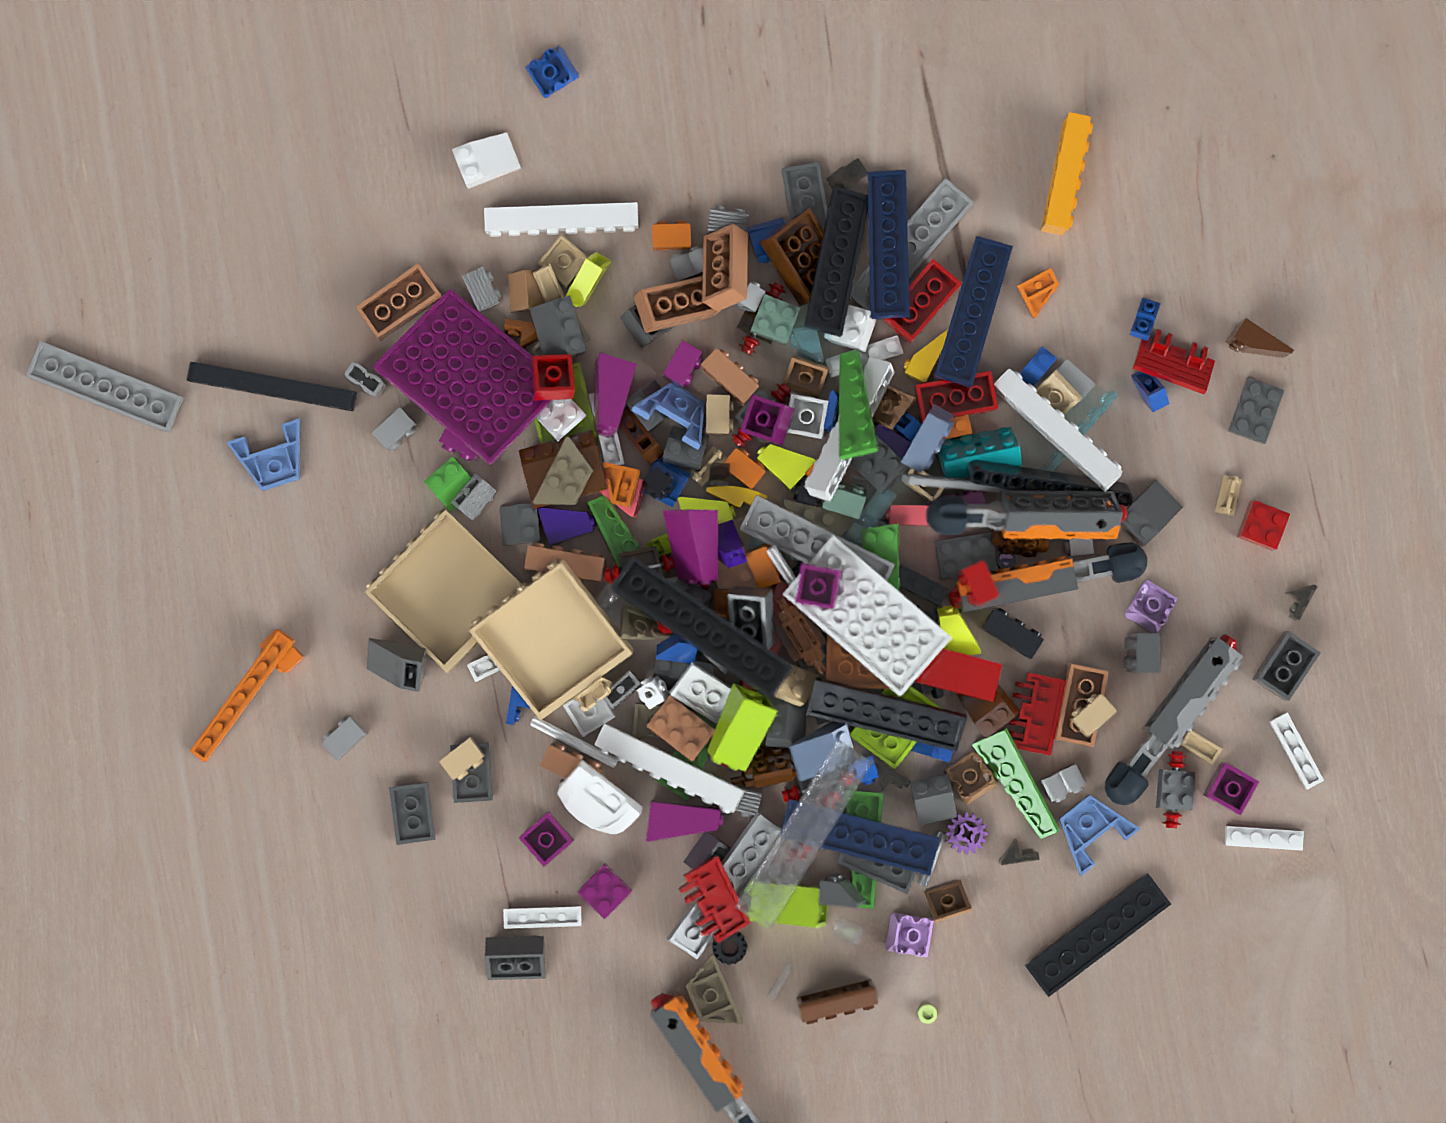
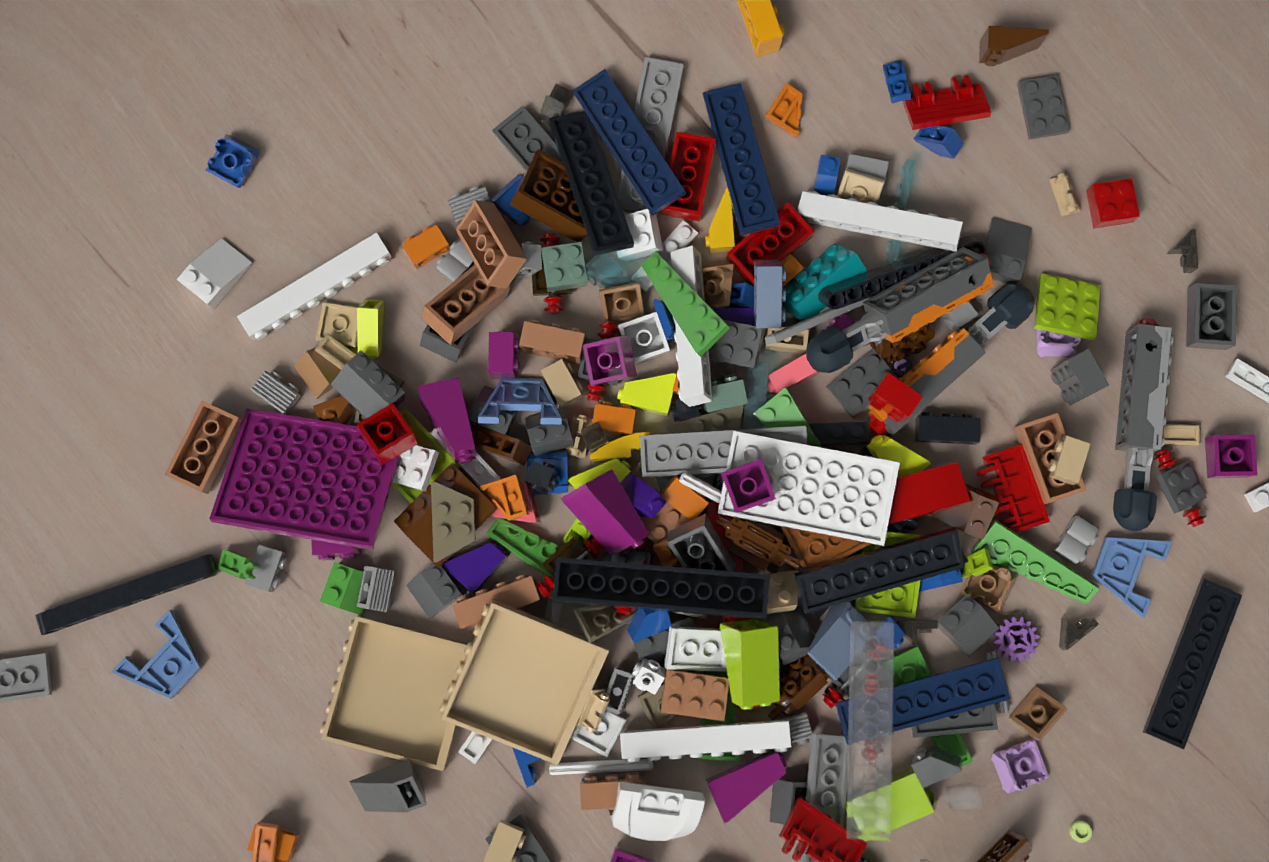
camera: 25 degrees left, 5 degrees down
(361, 377) = (216, 537): light grey brick -> none
(373, 413) = (236, 565): none -> bright green plate
(972, 755) = (977, 563): none -> lime plate
(1172, 589) = (1067, 306): none -> lime plate

